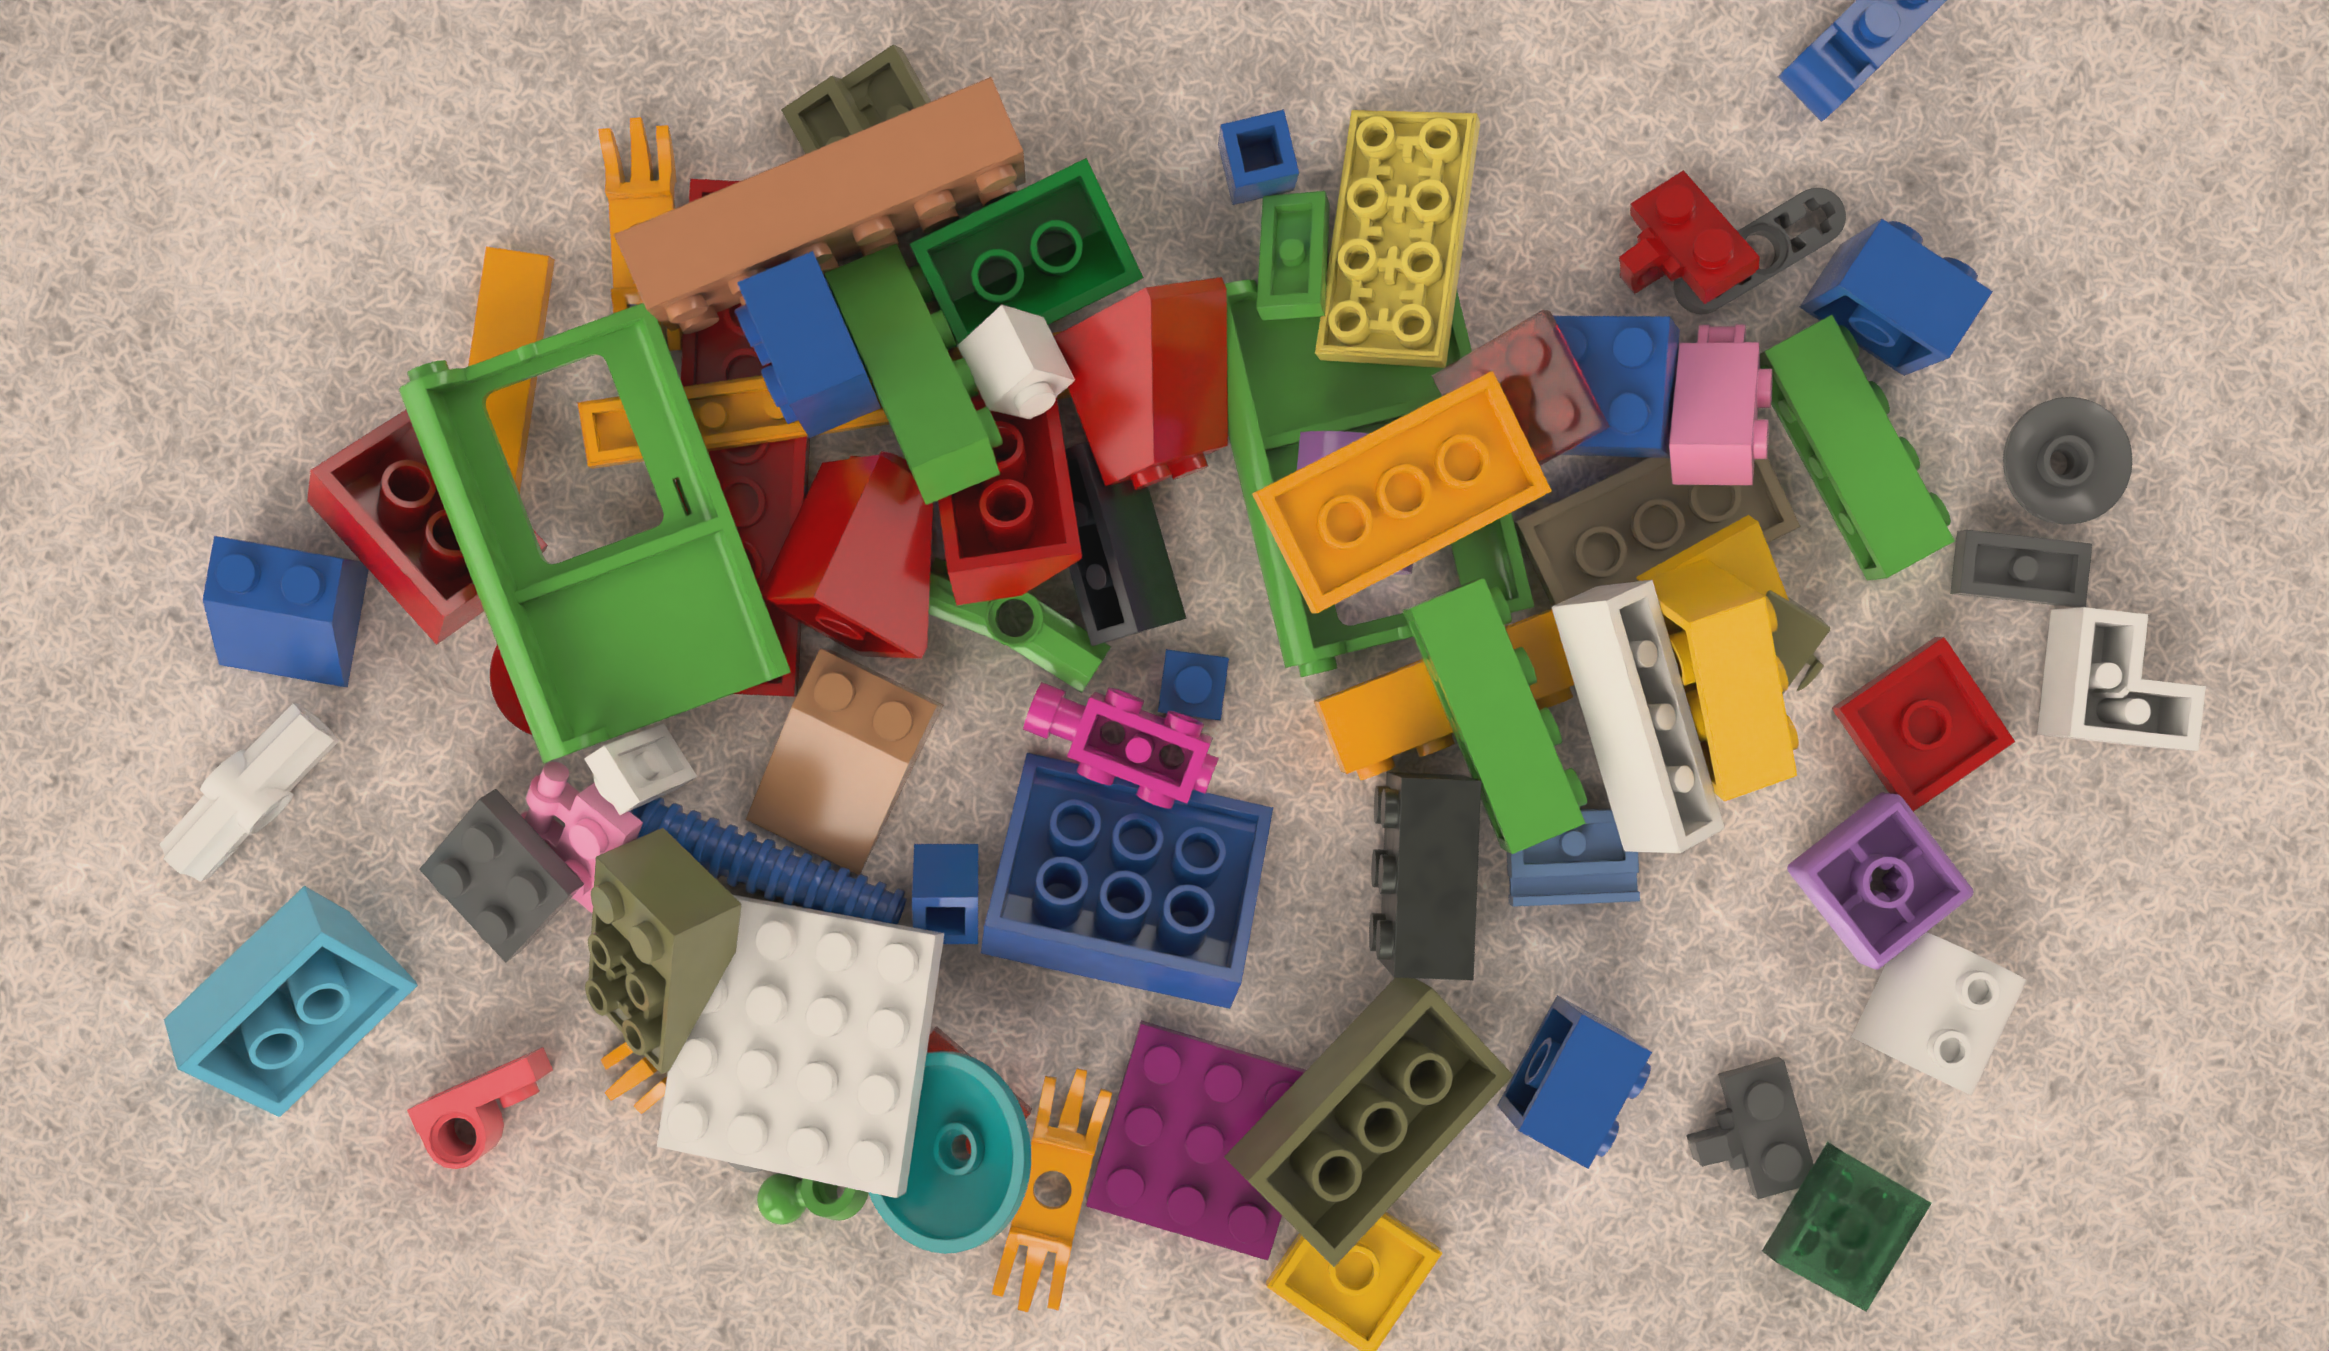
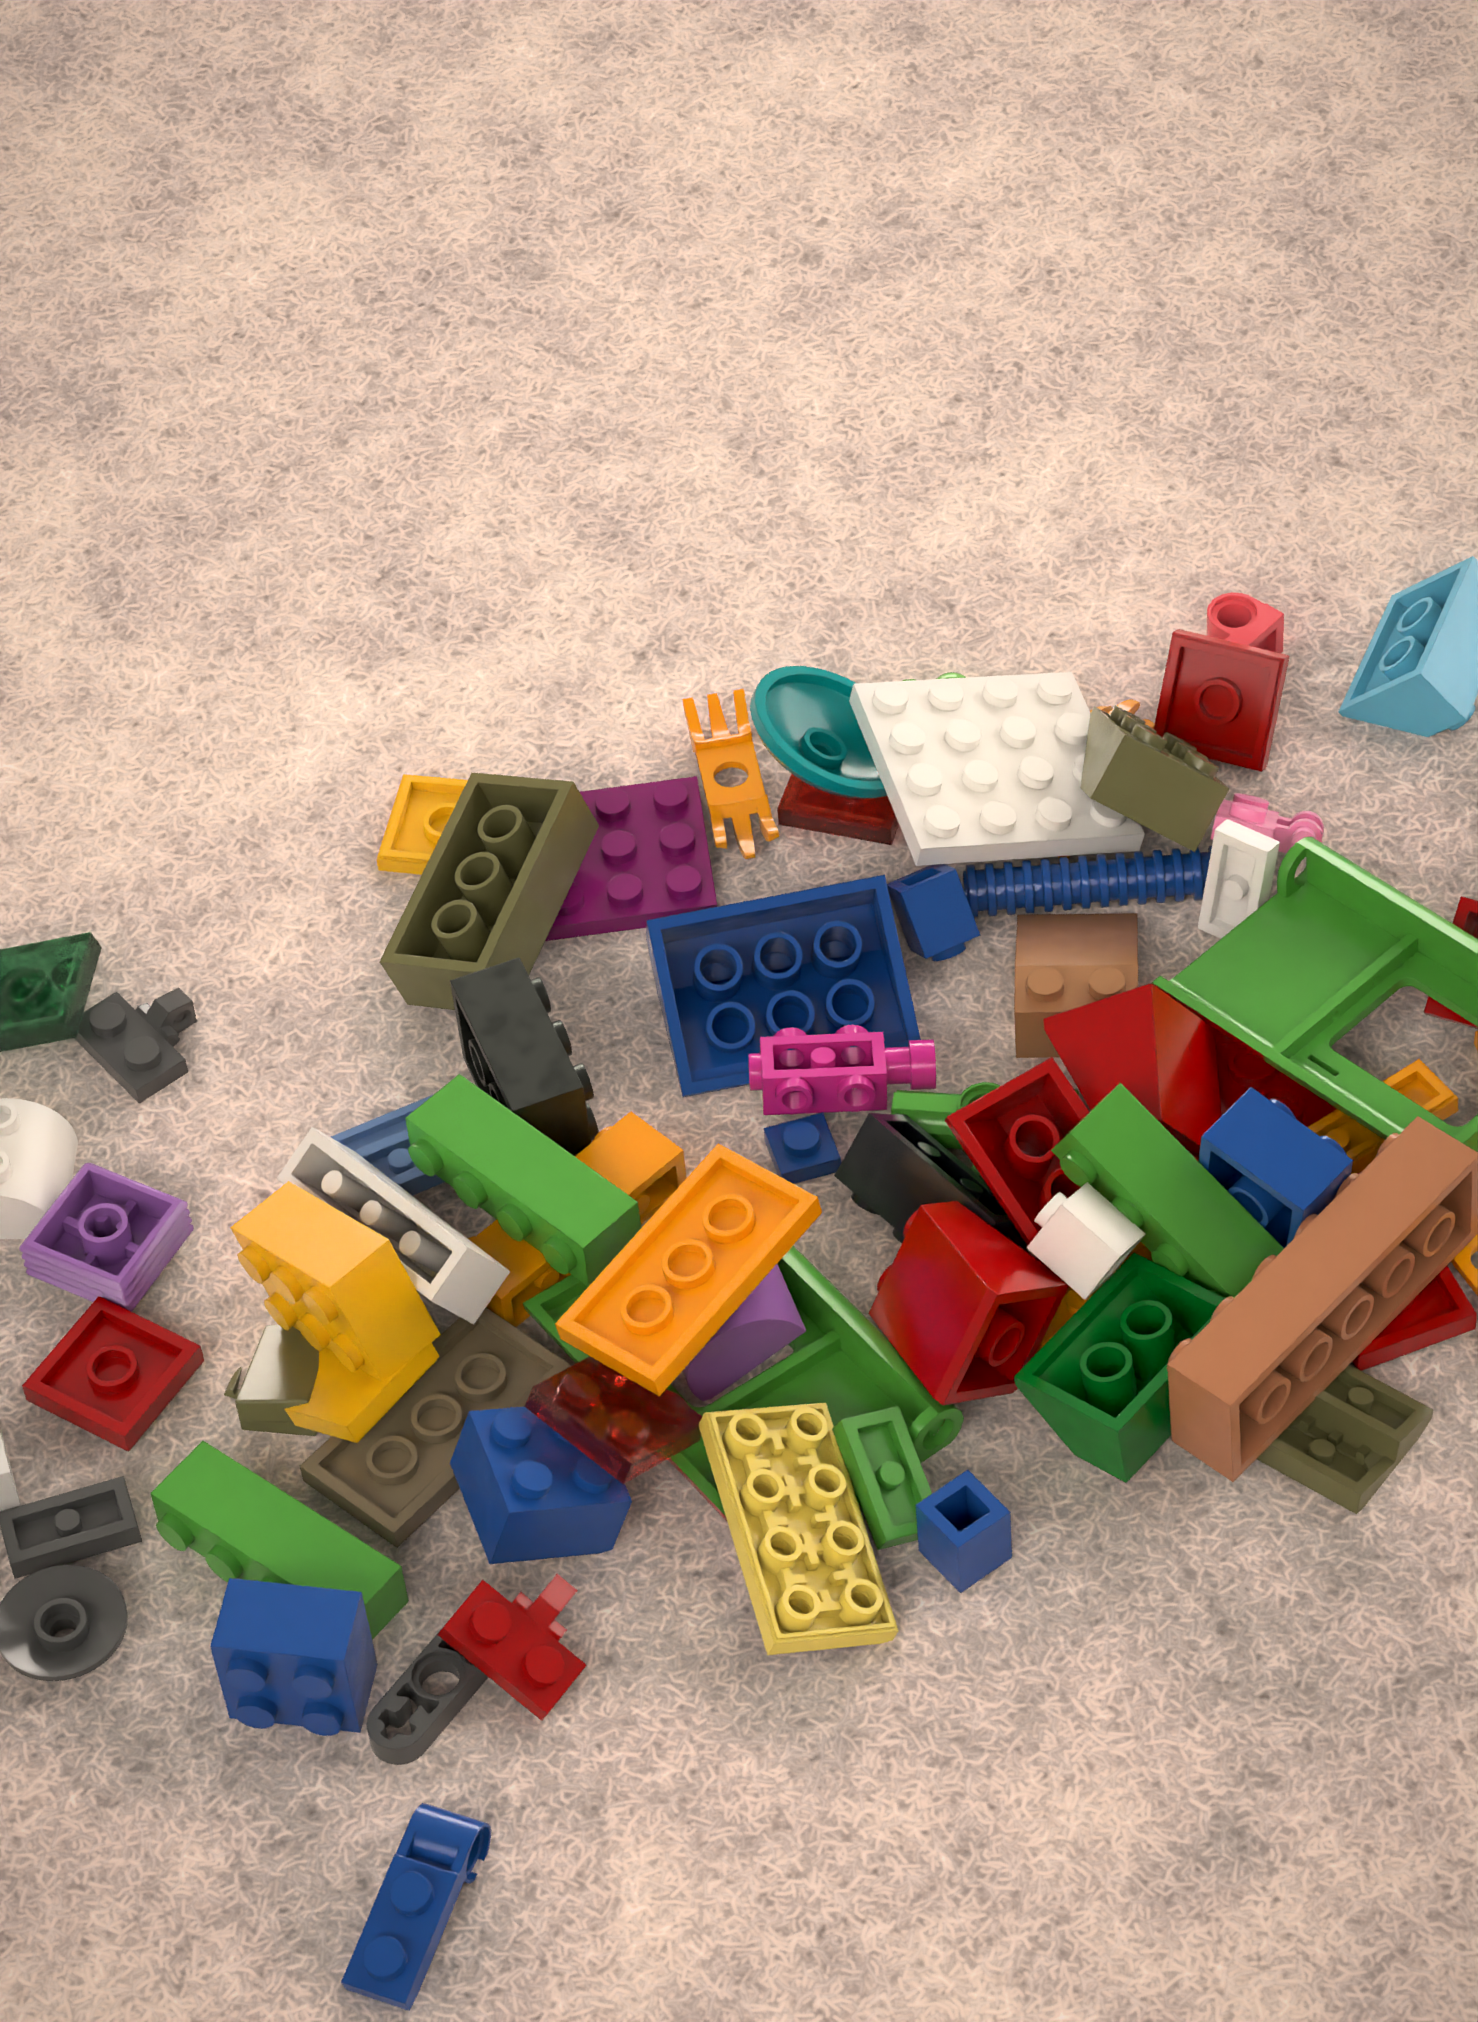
camera: 160 degrees right, 40 degrees down
(501, 875) = (1311, 785): dark grey plate -> none
(530, 1027) = (1222, 698): none -> red plate
(1575, 1083) = (322, 985): blue brick -> none
(1717, 407) = (426, 1507): bright pink brick -> none

